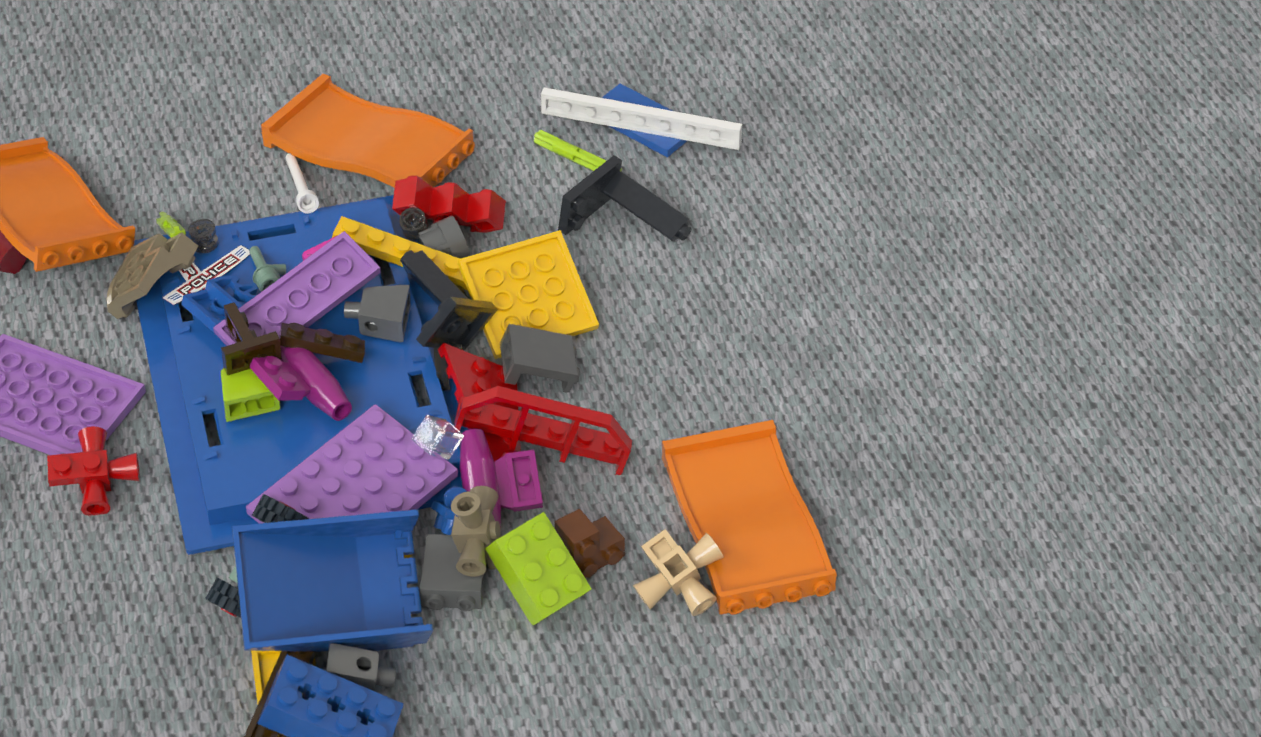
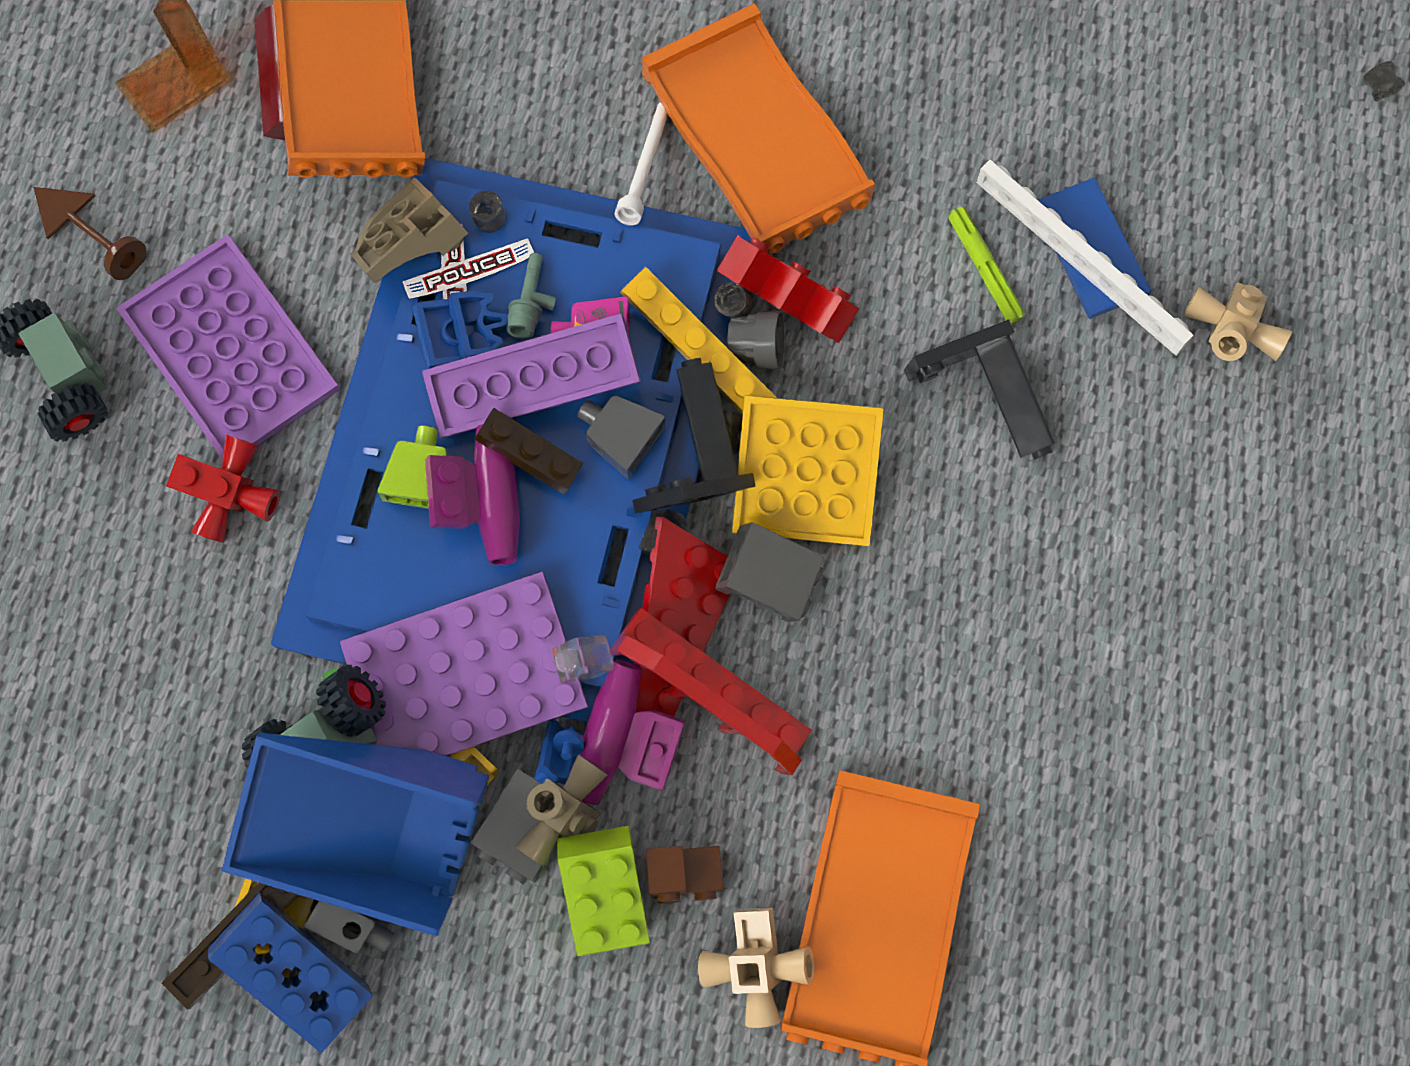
camera: 30 degrees right, 30 degrees up
(169, 225) = (466, 172): lime axle -> none
(247, 345) = (438, 421): dark brown bracket -> none
(768, 117) = (1237, 322): none -> tan brick

